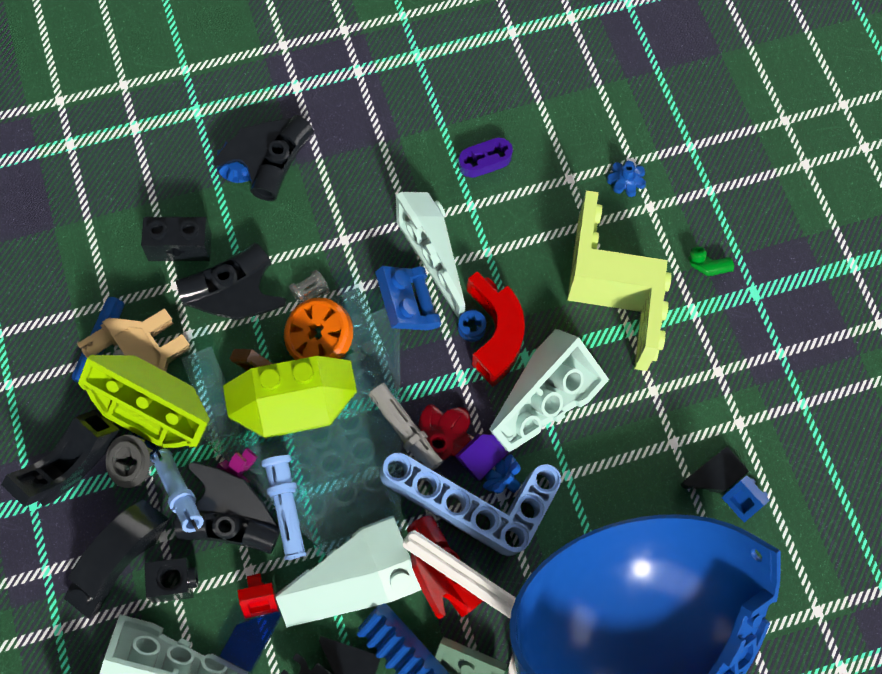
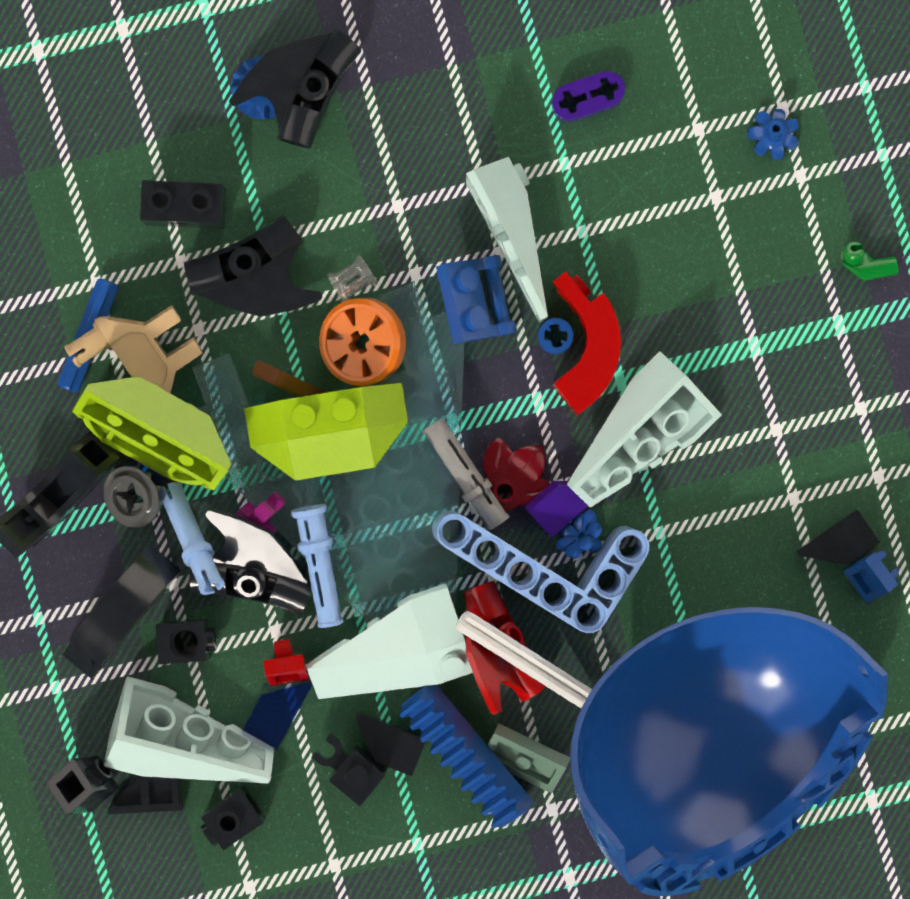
camera: 10 degrees right, 20 degrees up
(620, 282) = (745, 293): yellowish green bracket -> none

